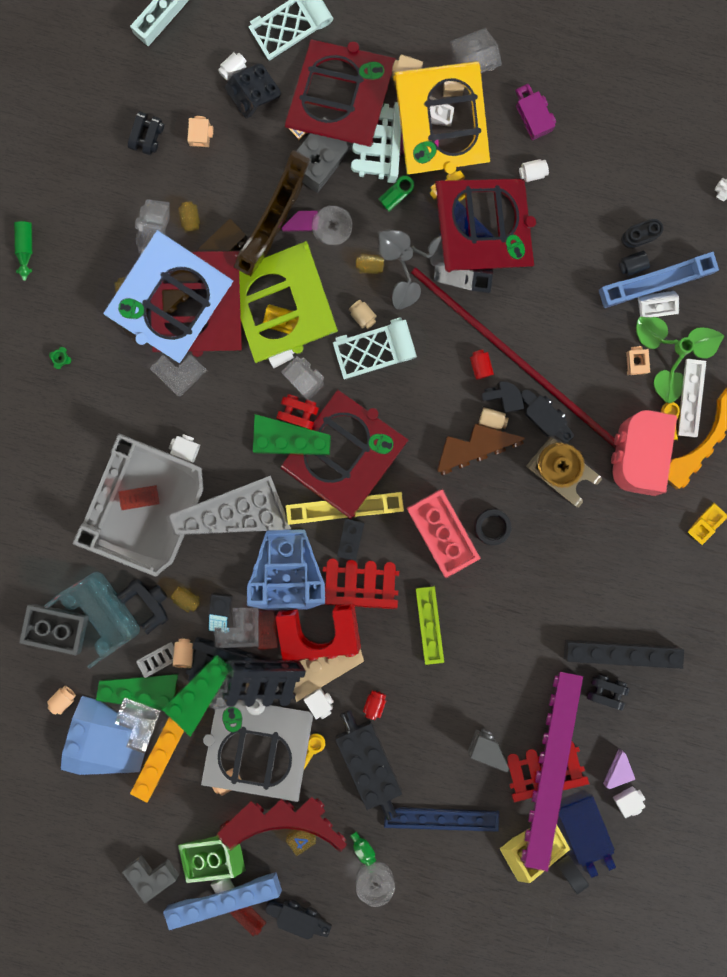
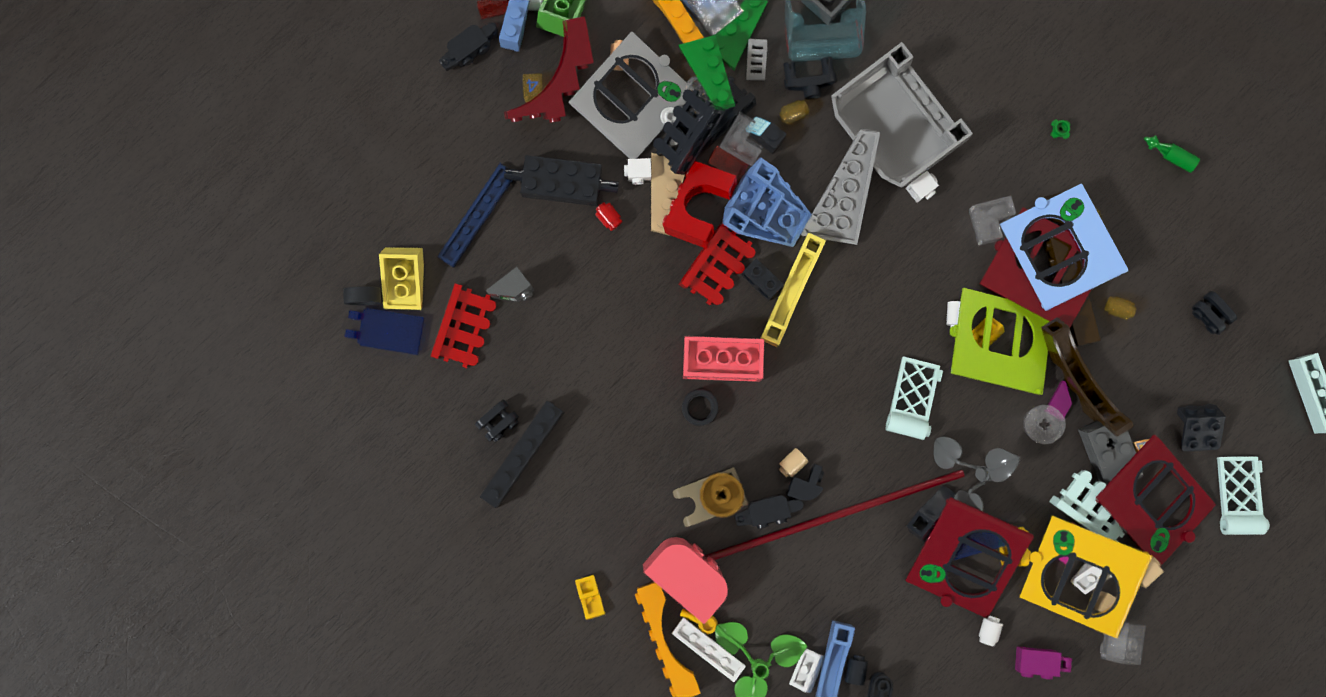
camera: 115 degrees right, 5 degrees down
(138, 497) = (904, 122): clear red plate -> none
(153, 217) = (1139, 275): clear brick -> none
(183, 654) = (749, 82): light nougat brick -> none
(199, 131) = (1189, 359): light nougat brick -> none
(232, 65) = (1233, 422): white brick -> none
(284, 438) = (880, 277): green wing -> none
(292, 402) = (909, 300): red brick -> none
(303, 378) = (923, 321): clear brick -> none
(315, 745) = (605, 147): yellow plate -> none
(362, 314) = (950, 405): tan brick -> none
(363, 850) = (492, 134): green plant -> none
(365, 888) = (454, 116): clear brick -> none
(370, 263) = (990, 438): clear yellow brick -> none
(376, 456) = (809, 317): dark red door -> none
(396, 194) = (1038, 495): green piece -> none
(429, 625) = (648, 303): lime plate -> none
(481, 364) = (846, 482): red brick -> none
(481, 442) = (778, 440): reddish brown slope -> none
(552, 772) = (461, 331): magenta brick -> none
(619, 772) = (423, 390): lavender slope -> none
(630, 802) = (392, 383): white brick -> none
(643, 356) = (760, 621): light nougat brick -> none

